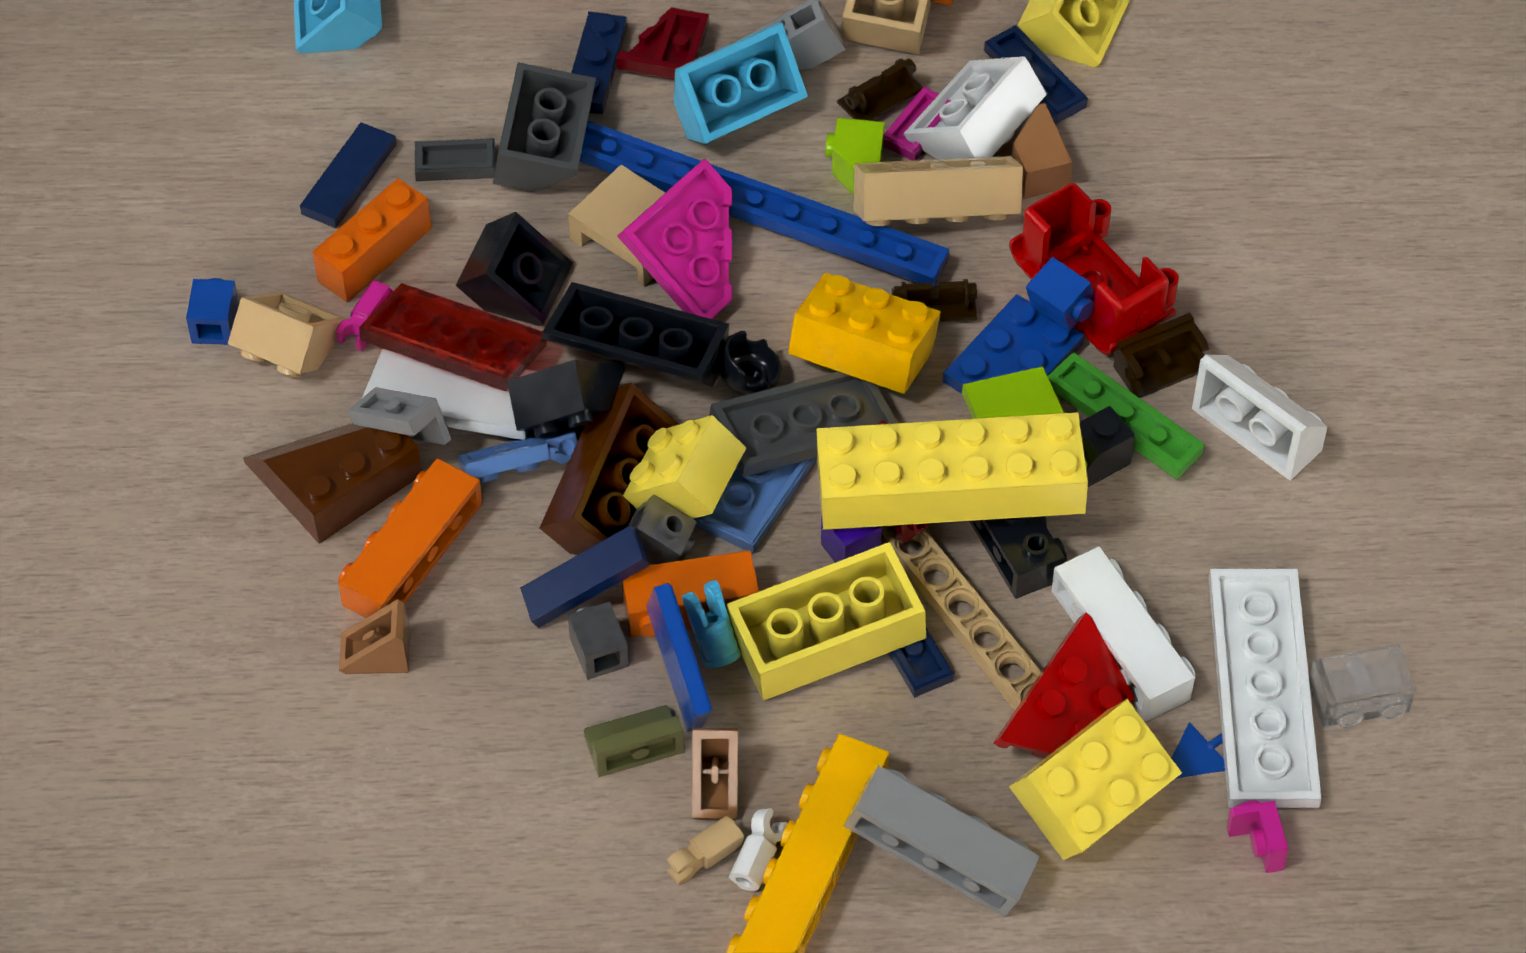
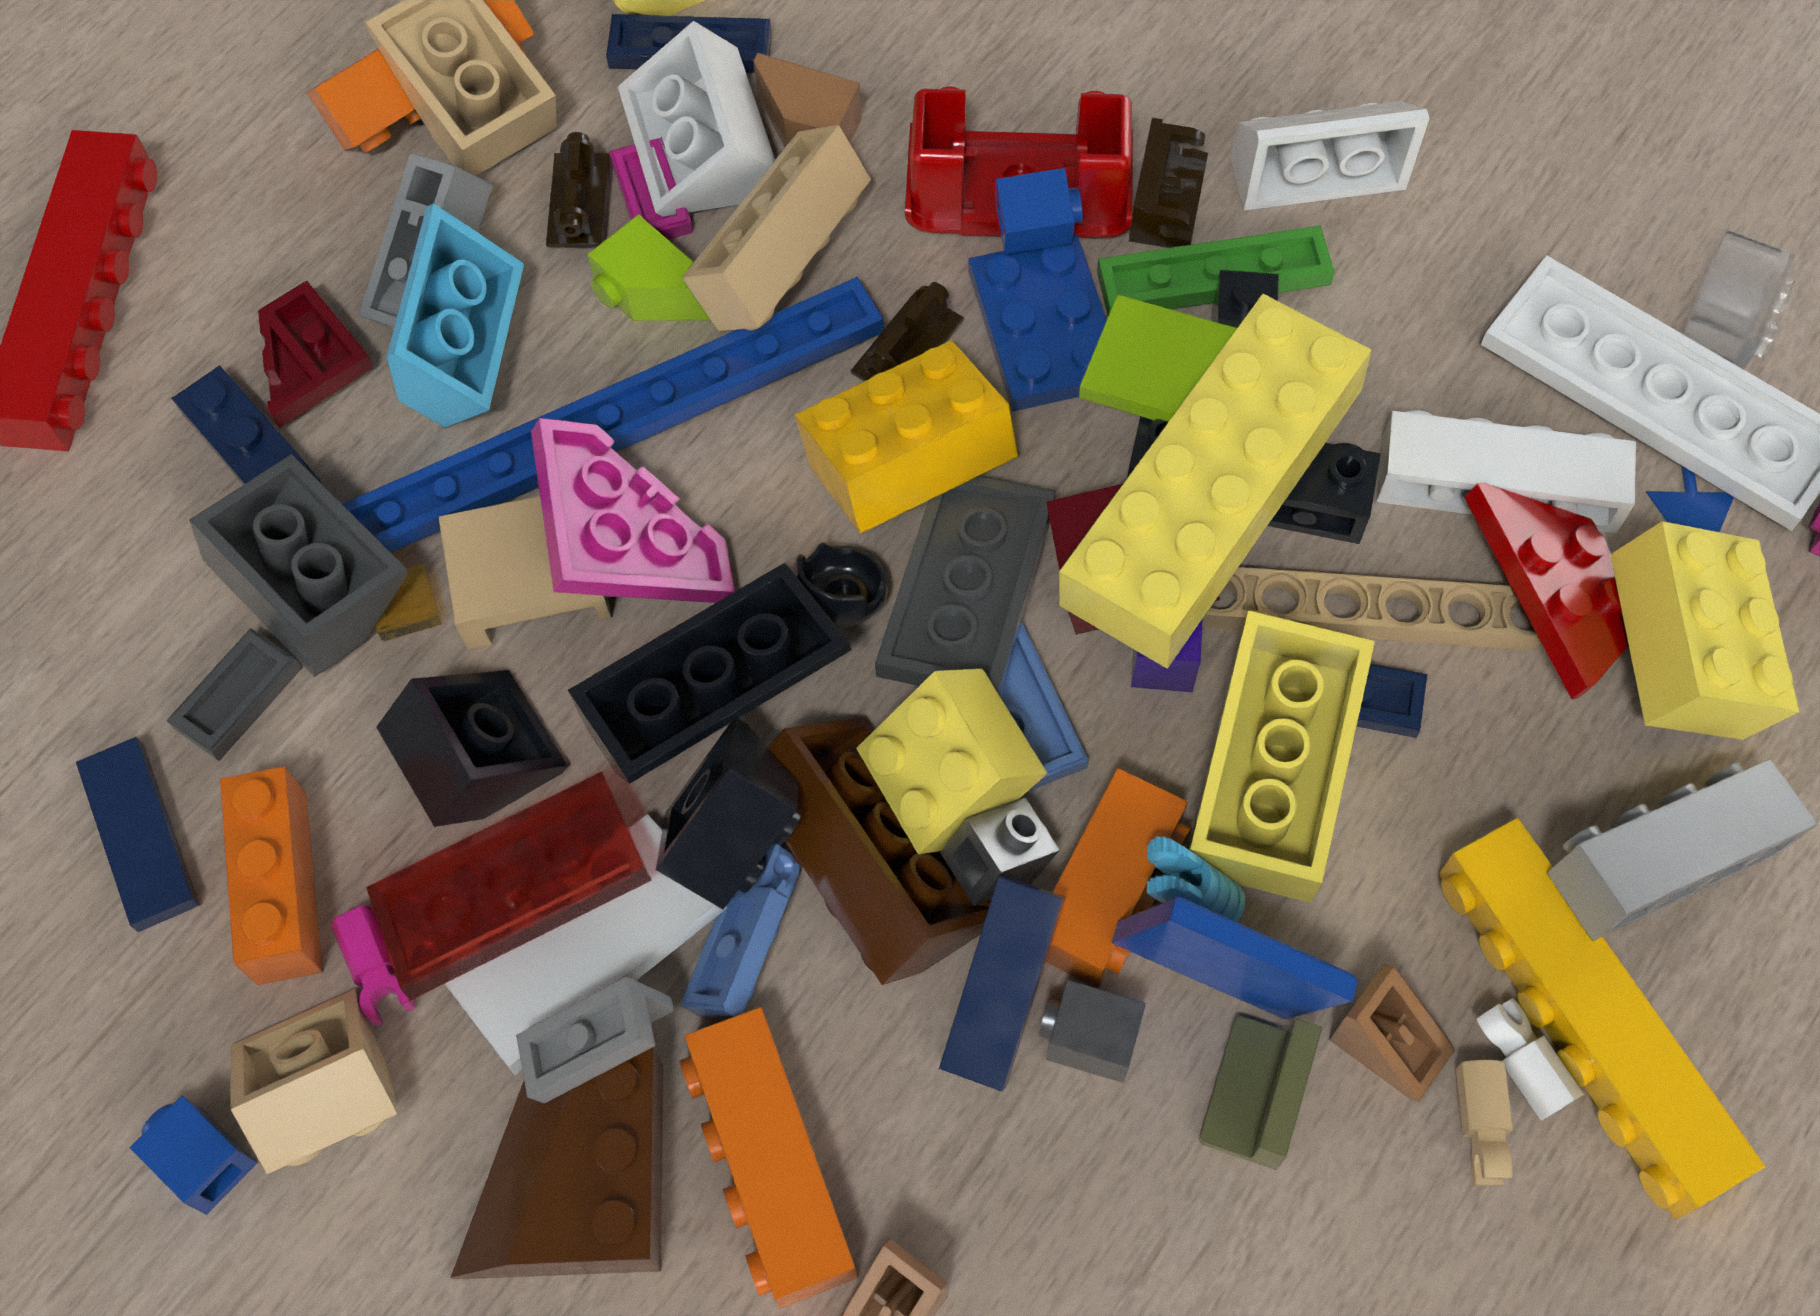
camera: 50 degrees left, 10 degrees up
(567, 193) = (411, 607): none -> clear yellow tile

